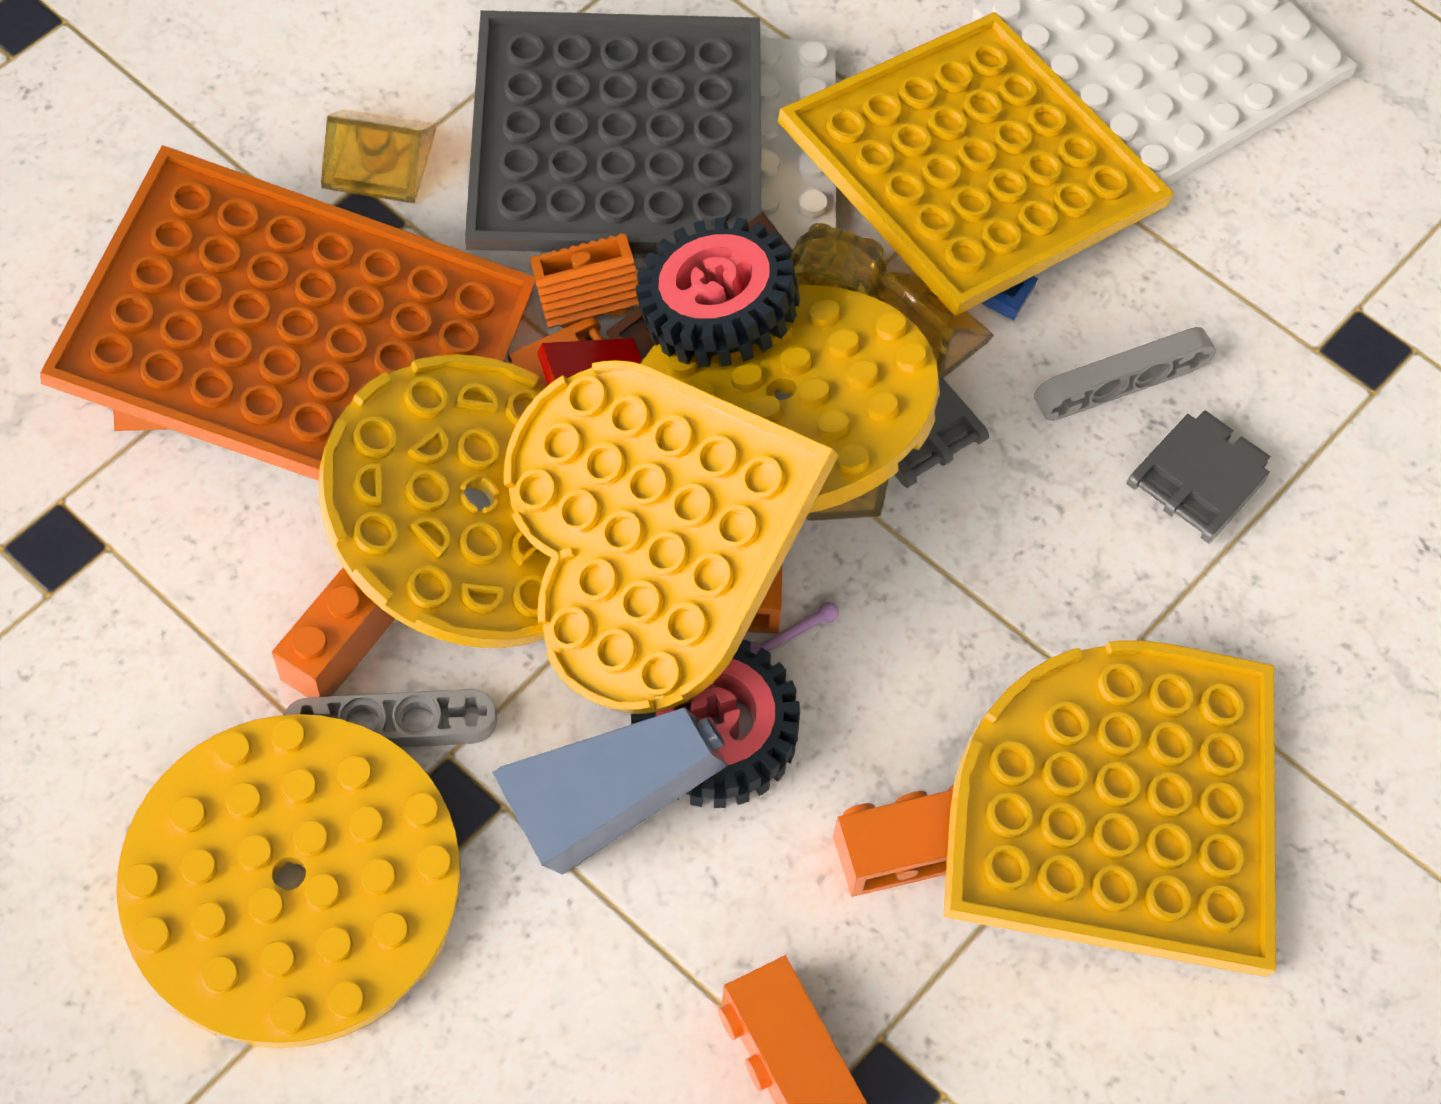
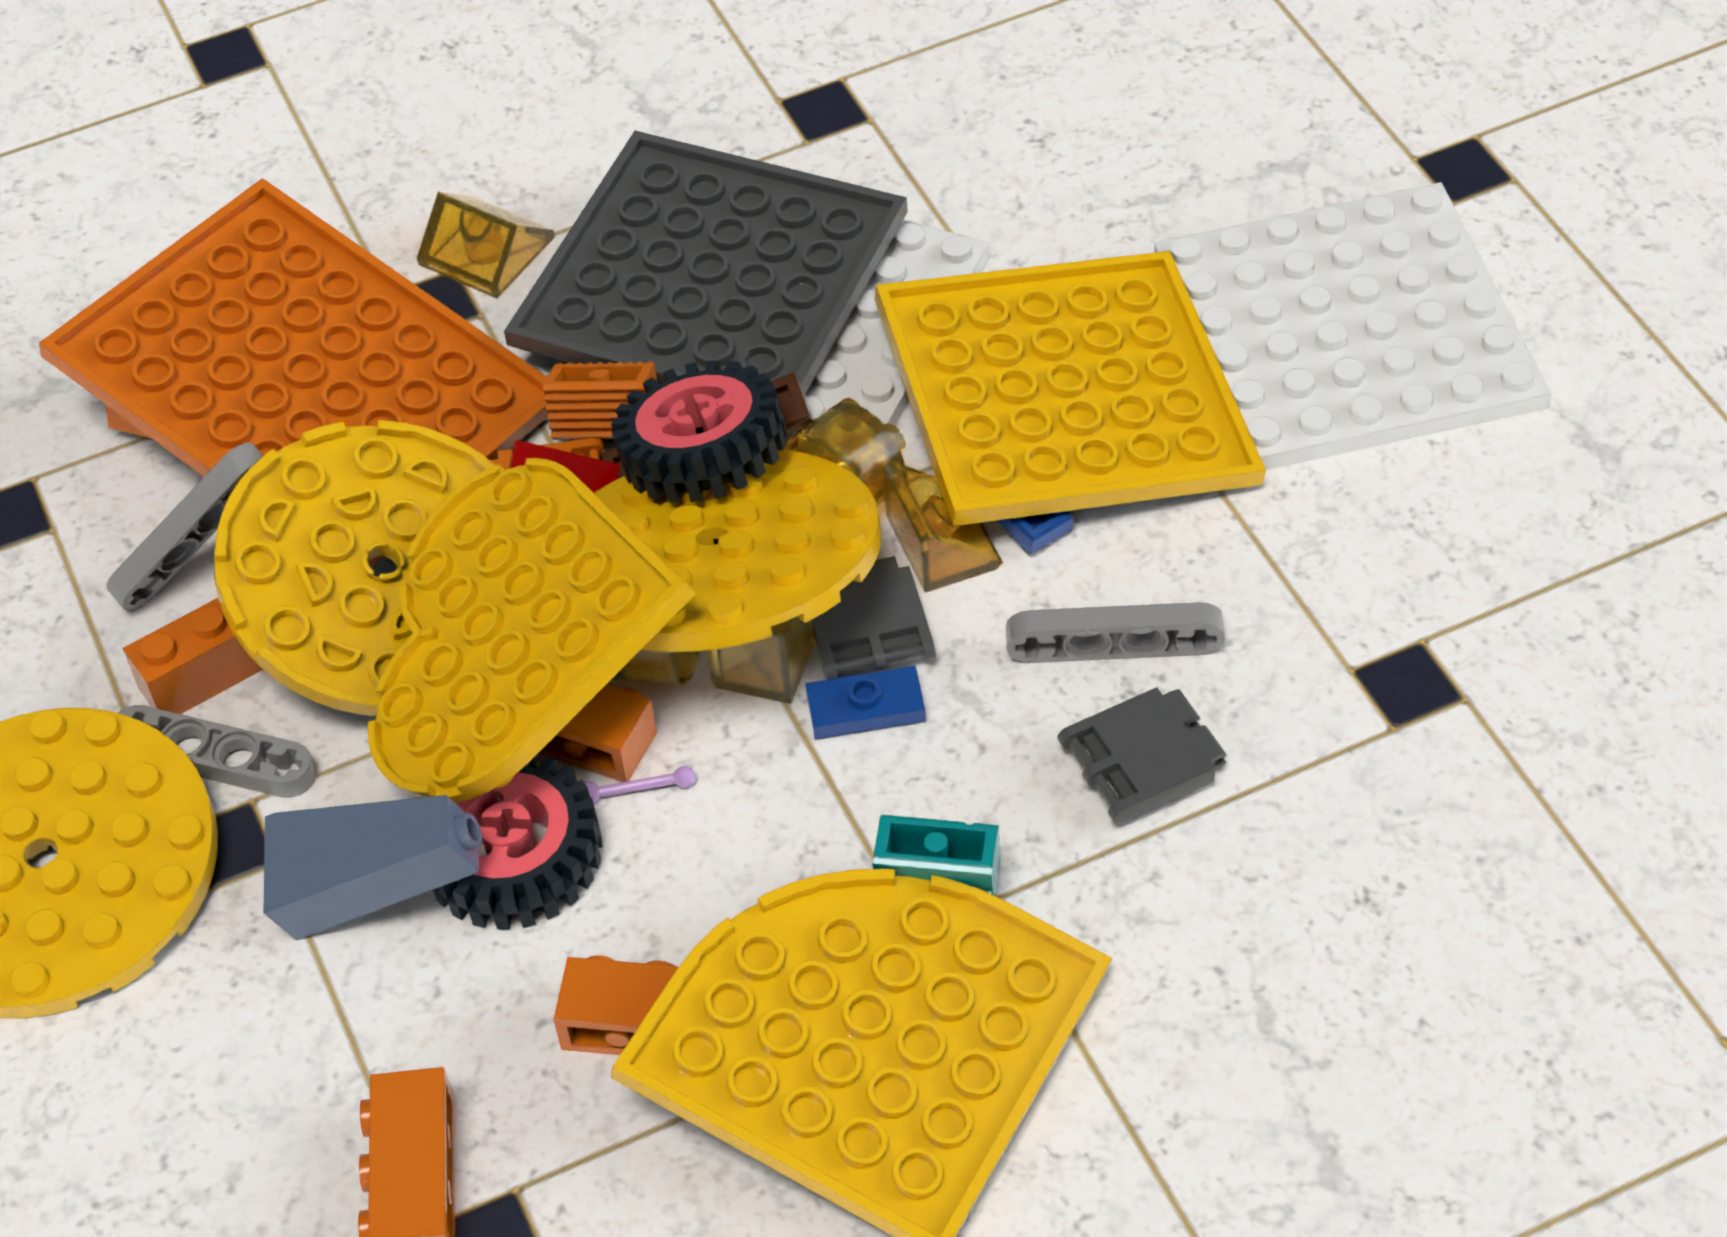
camera: 30 degrees right, 10 degrees down
(270, 513) = (180, 532): none -> light grey beam
(947, 497) = (865, 702): none -> blue plate
(1097, 618) = (939, 848): none -> teal brick

